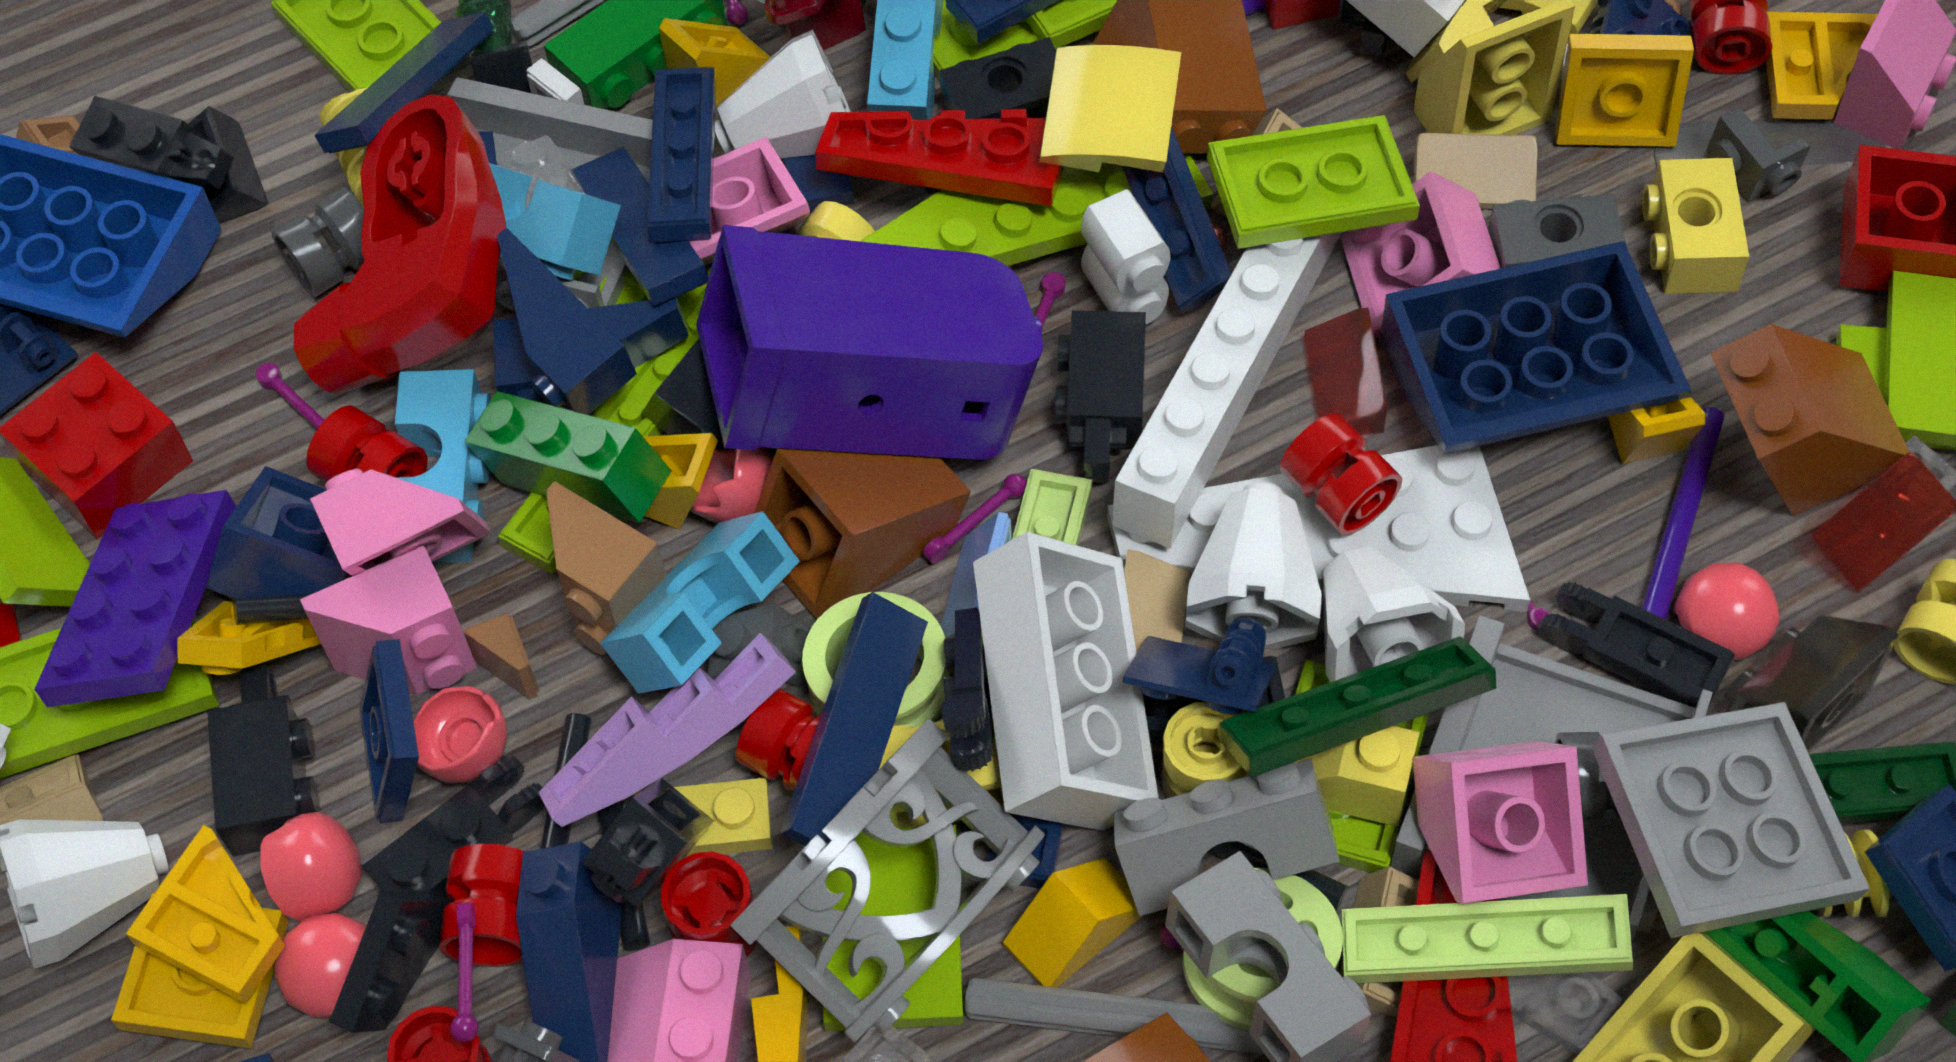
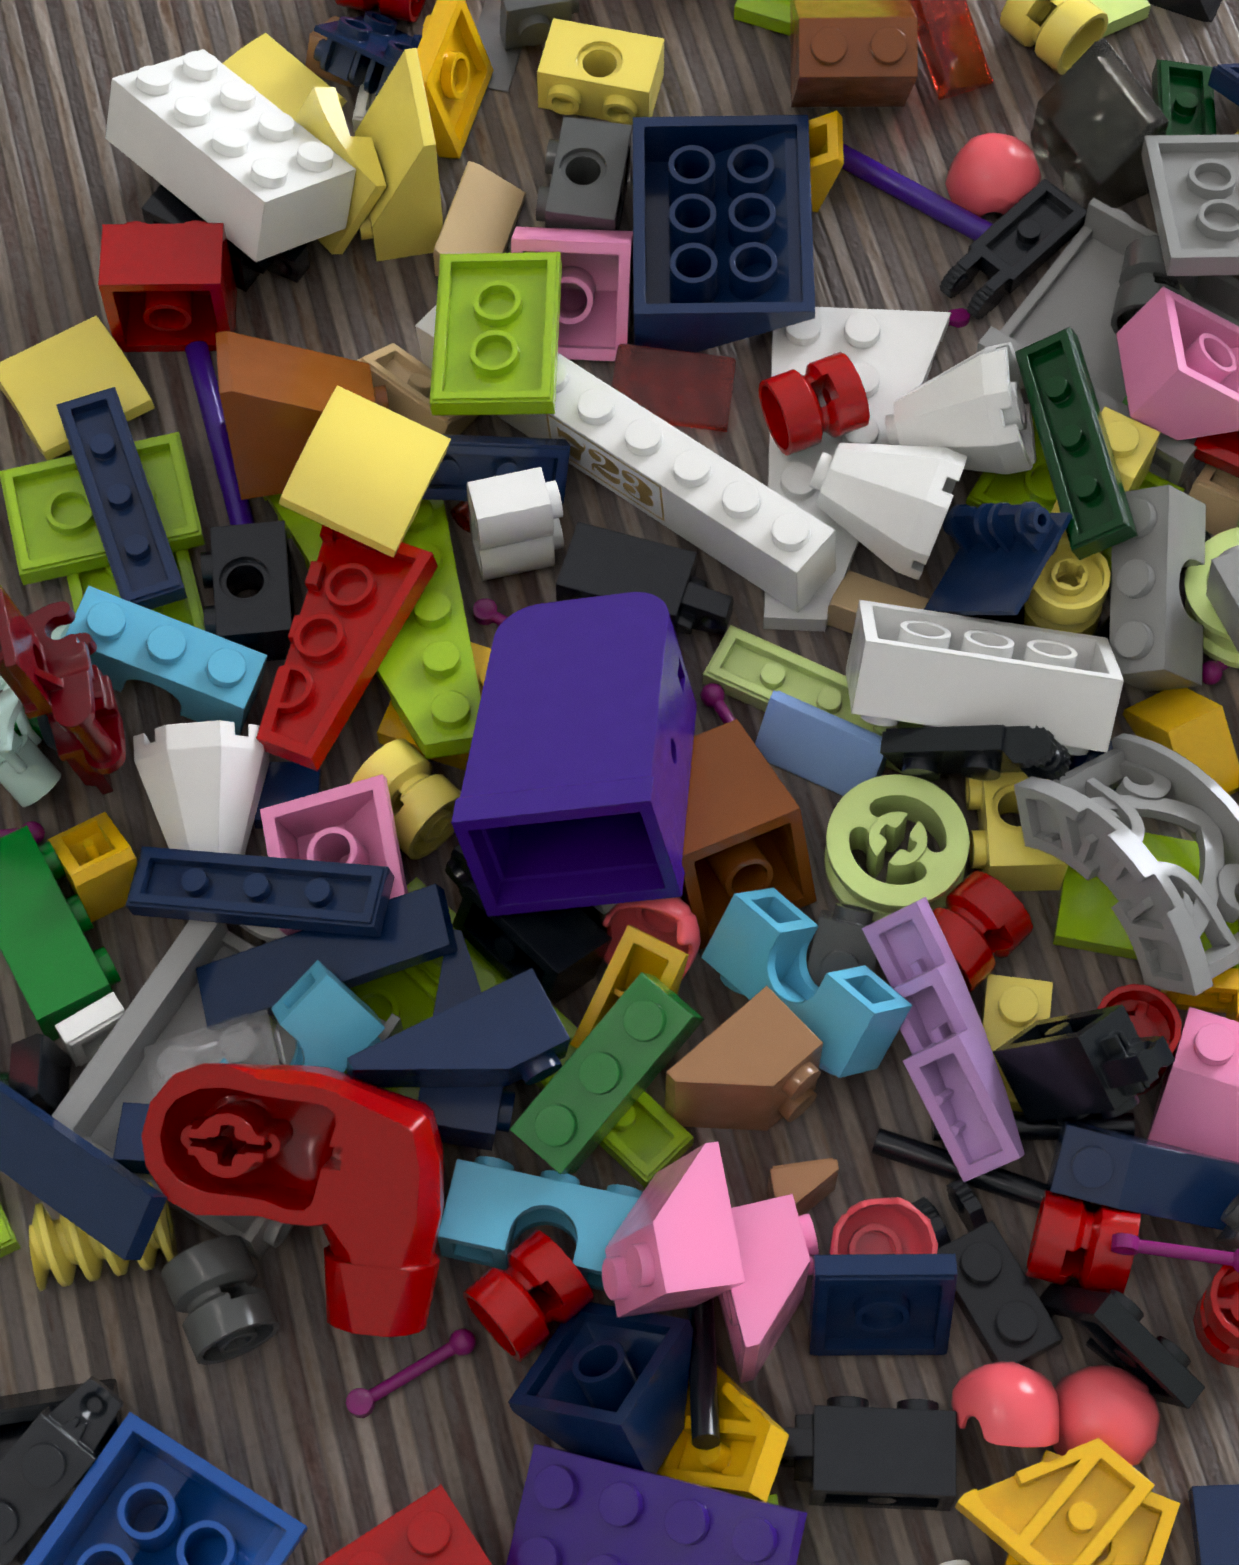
camera: 80 degrees left, 5 degrees up
(855, 715) = (990, 859): dark blue tile -> none

